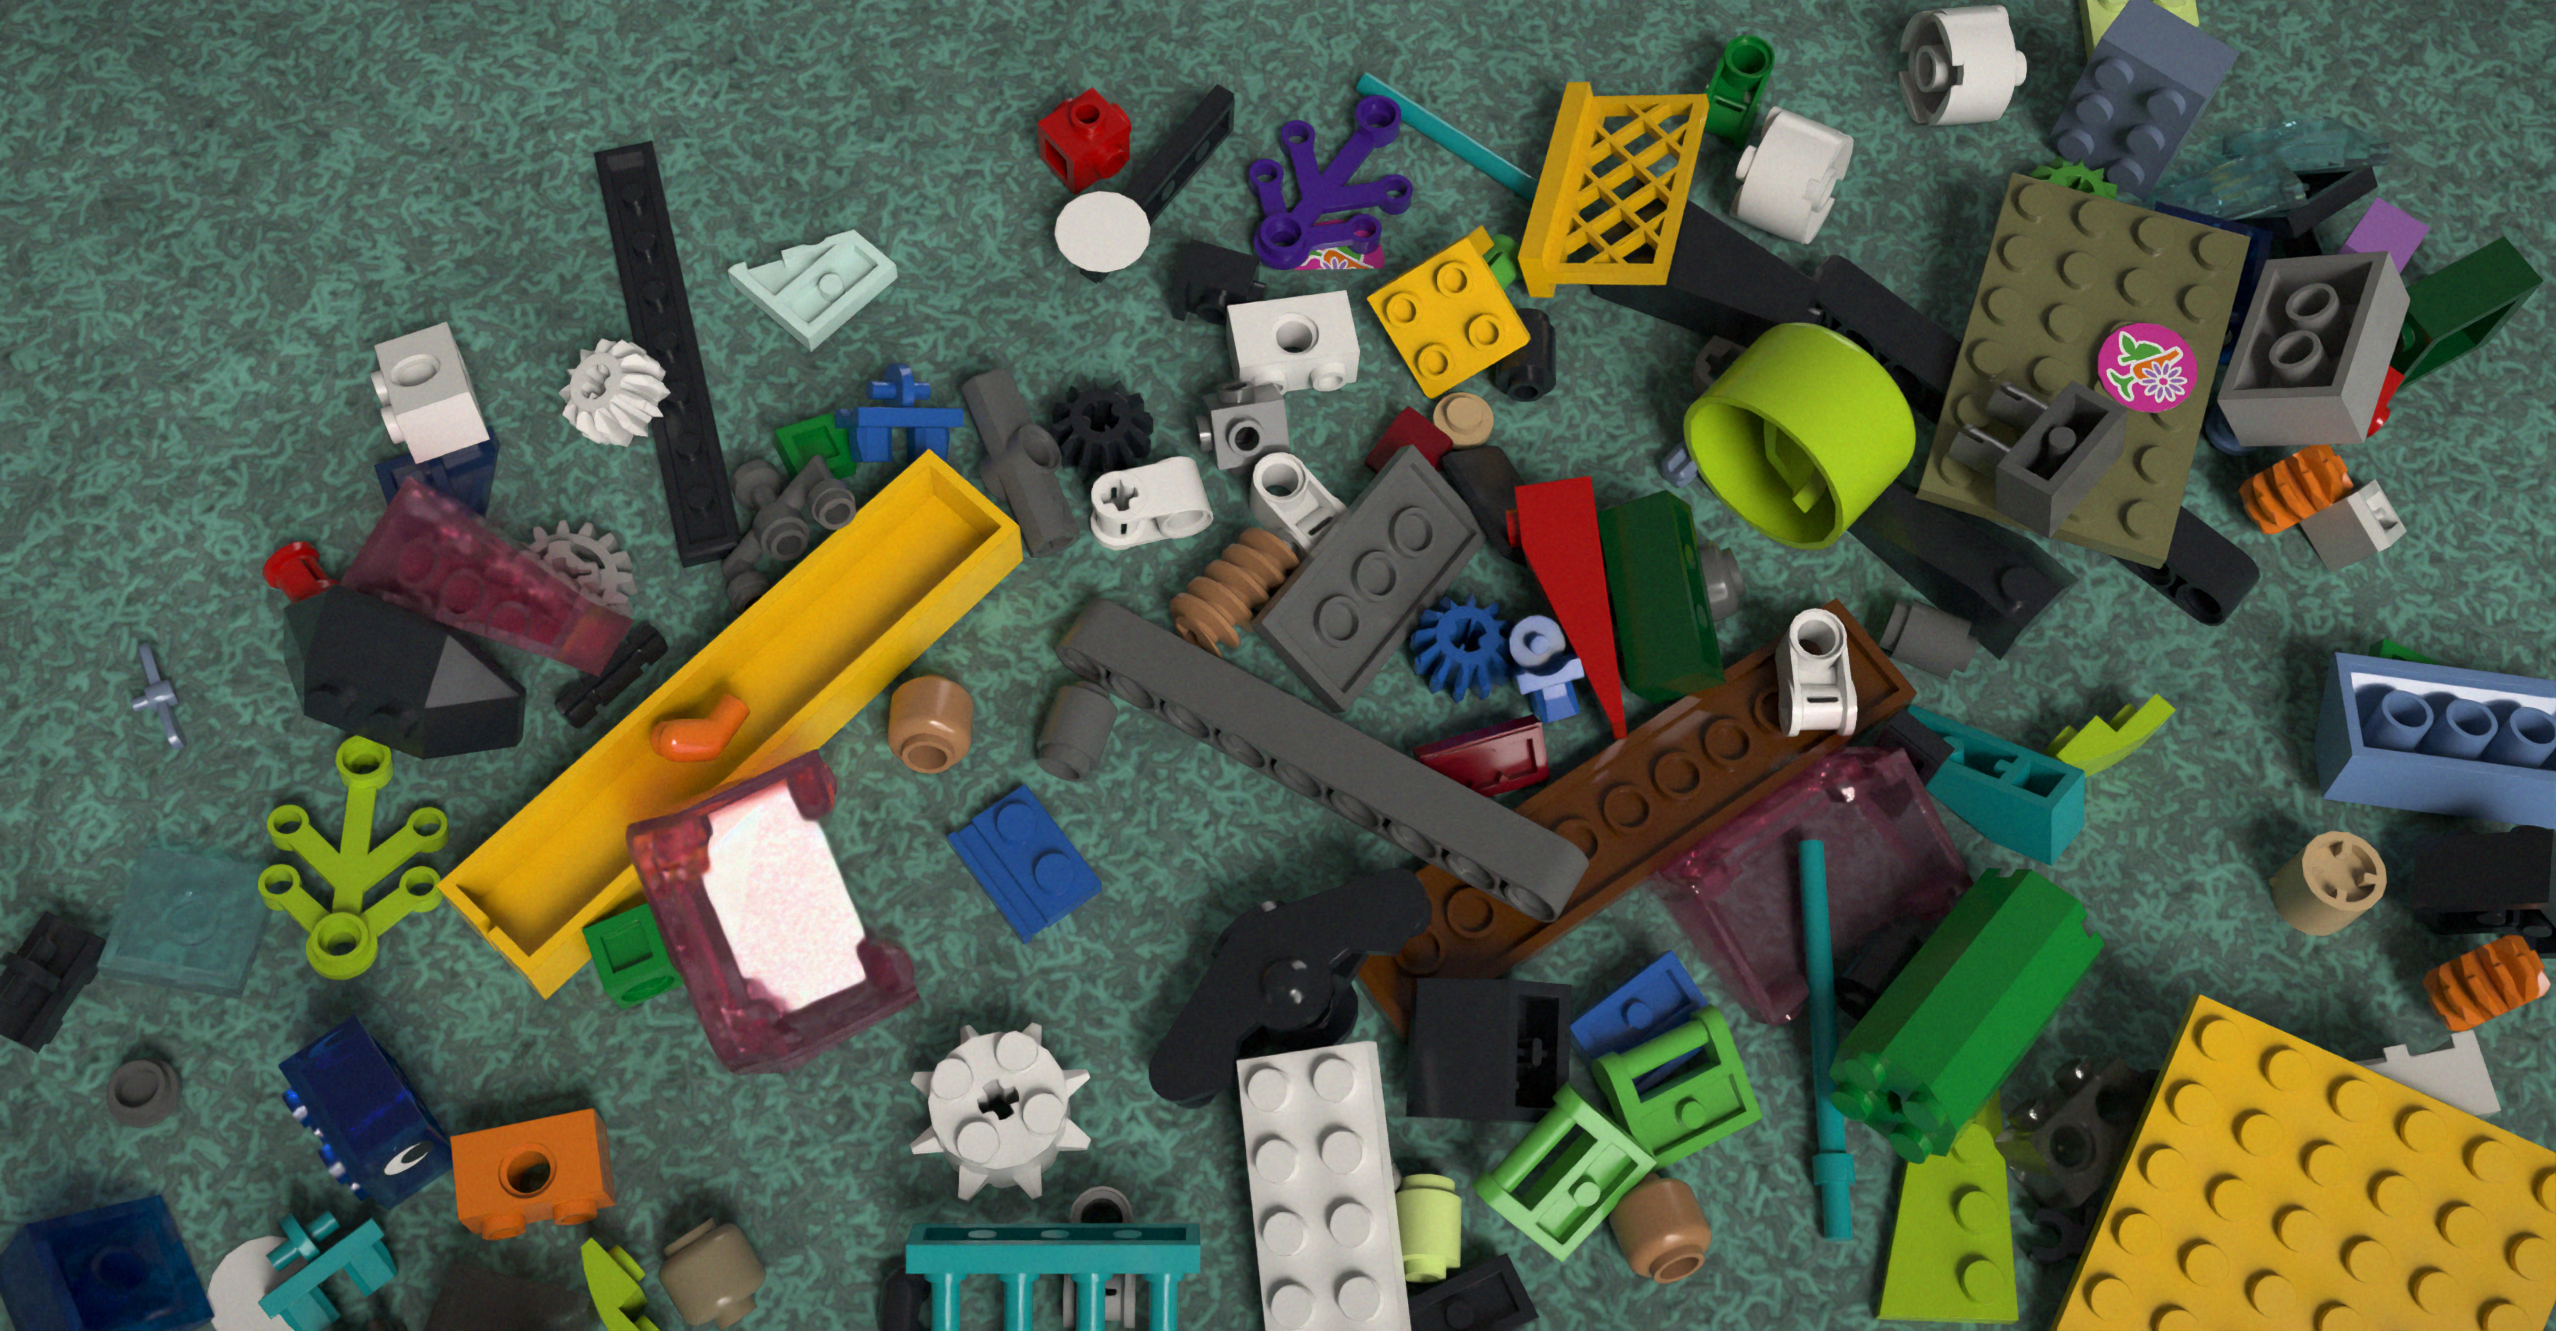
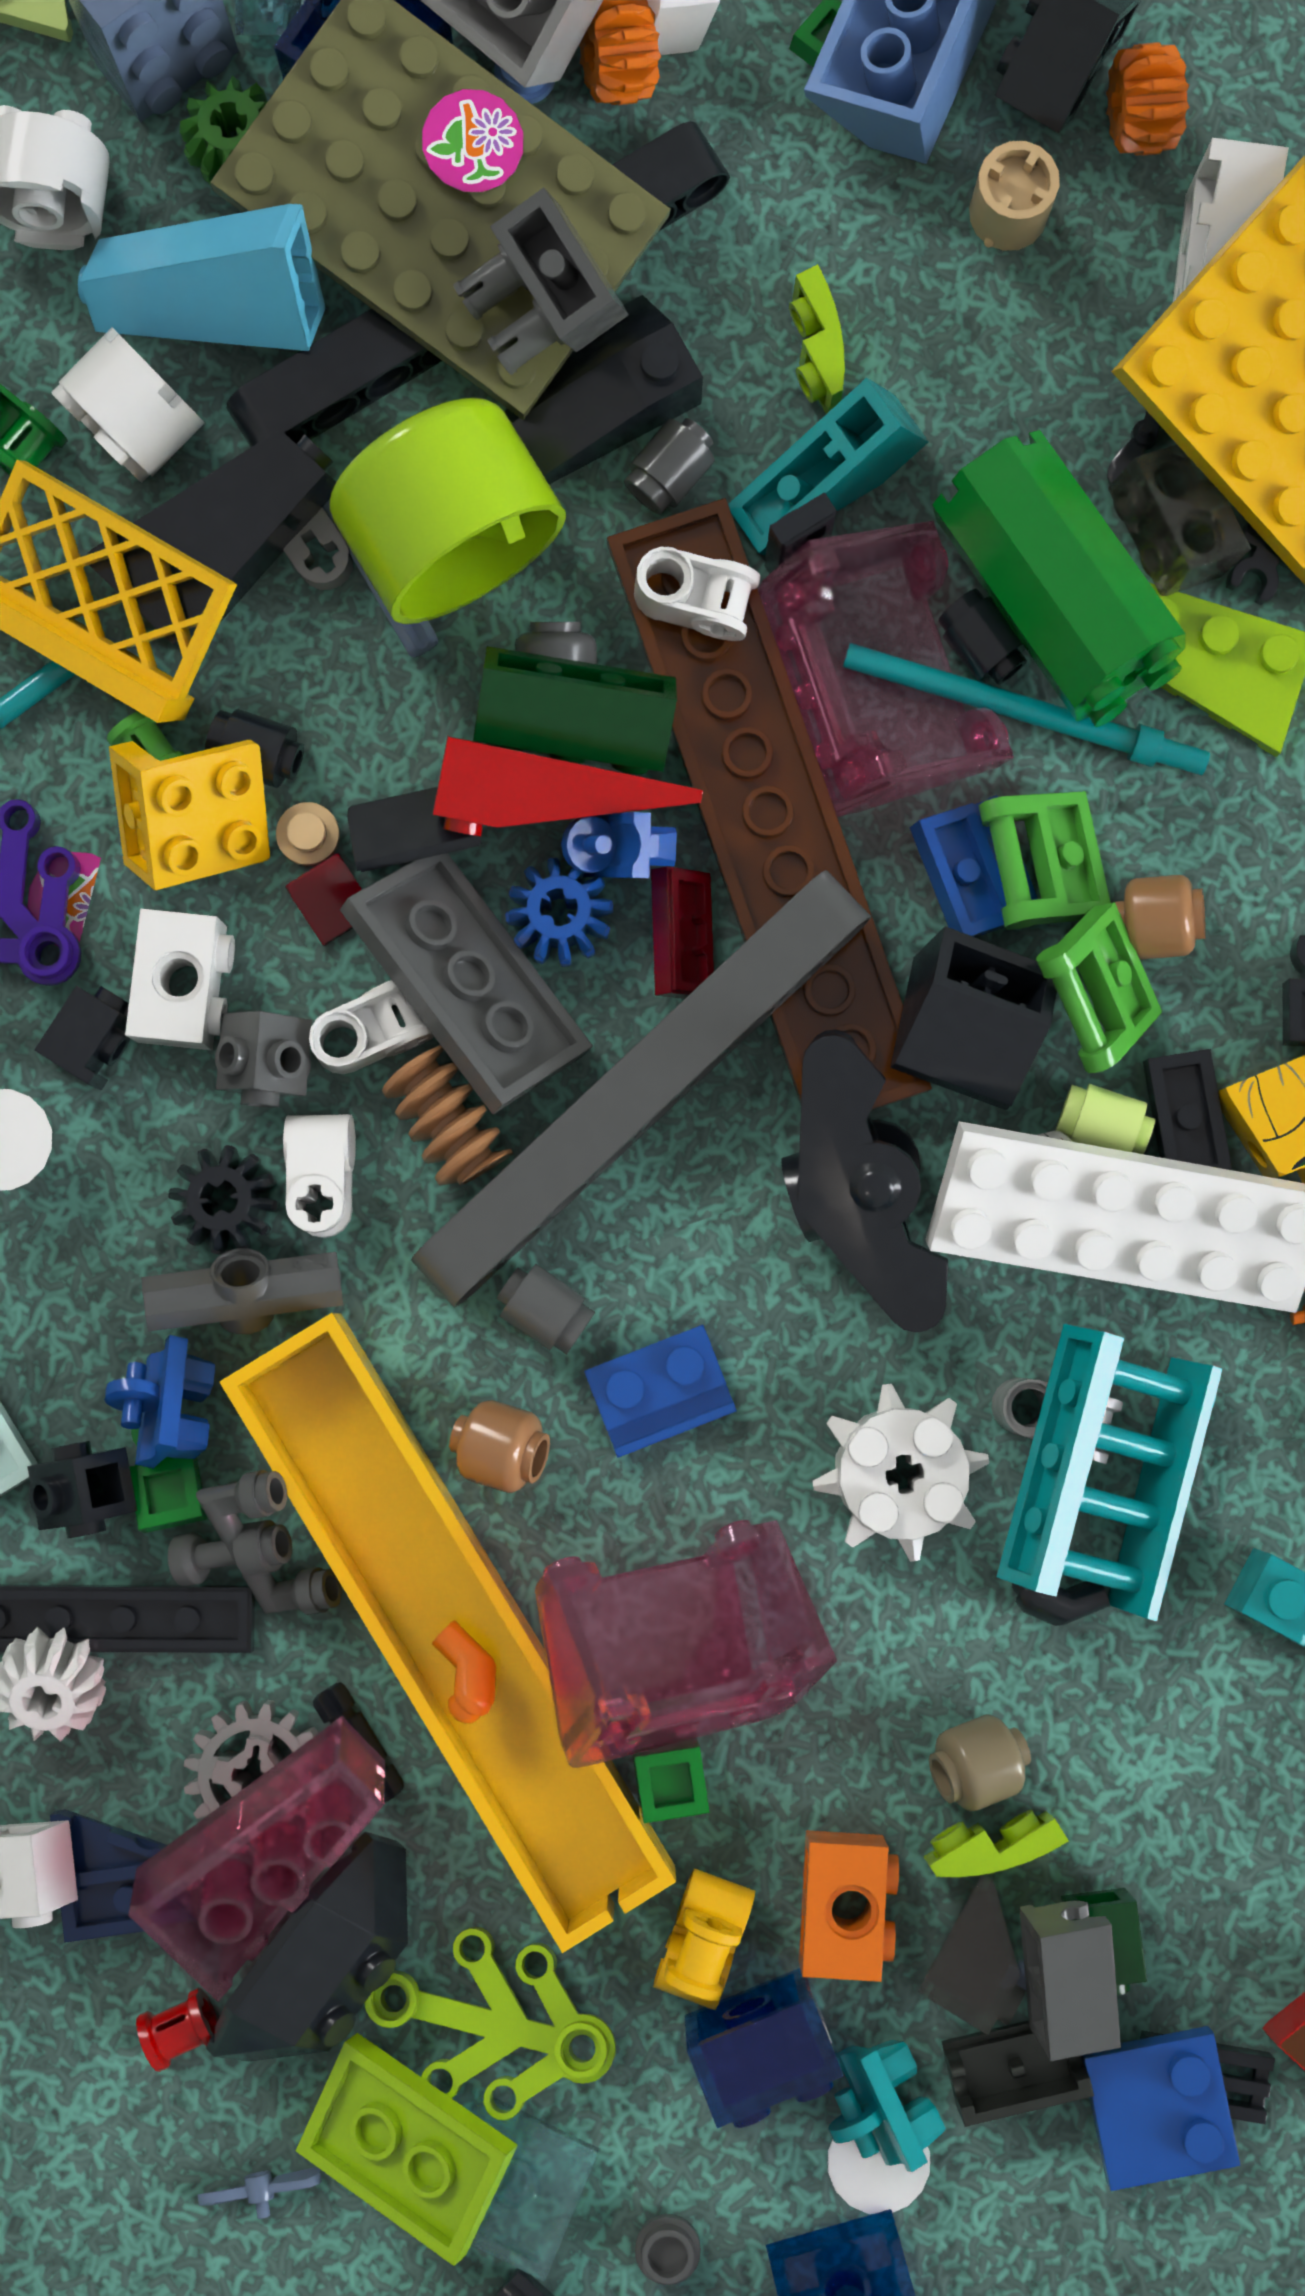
camera: 70 degrees left, 20 degrees up
(215, 803) = (406, 2148): none -> lime plate
(473, 1038) = (704, 1939): none -> yellow piece
(811, 391) = (81, 1489): none -> black brick
(1928, 210) = (210, 281): none -> medium azure slope

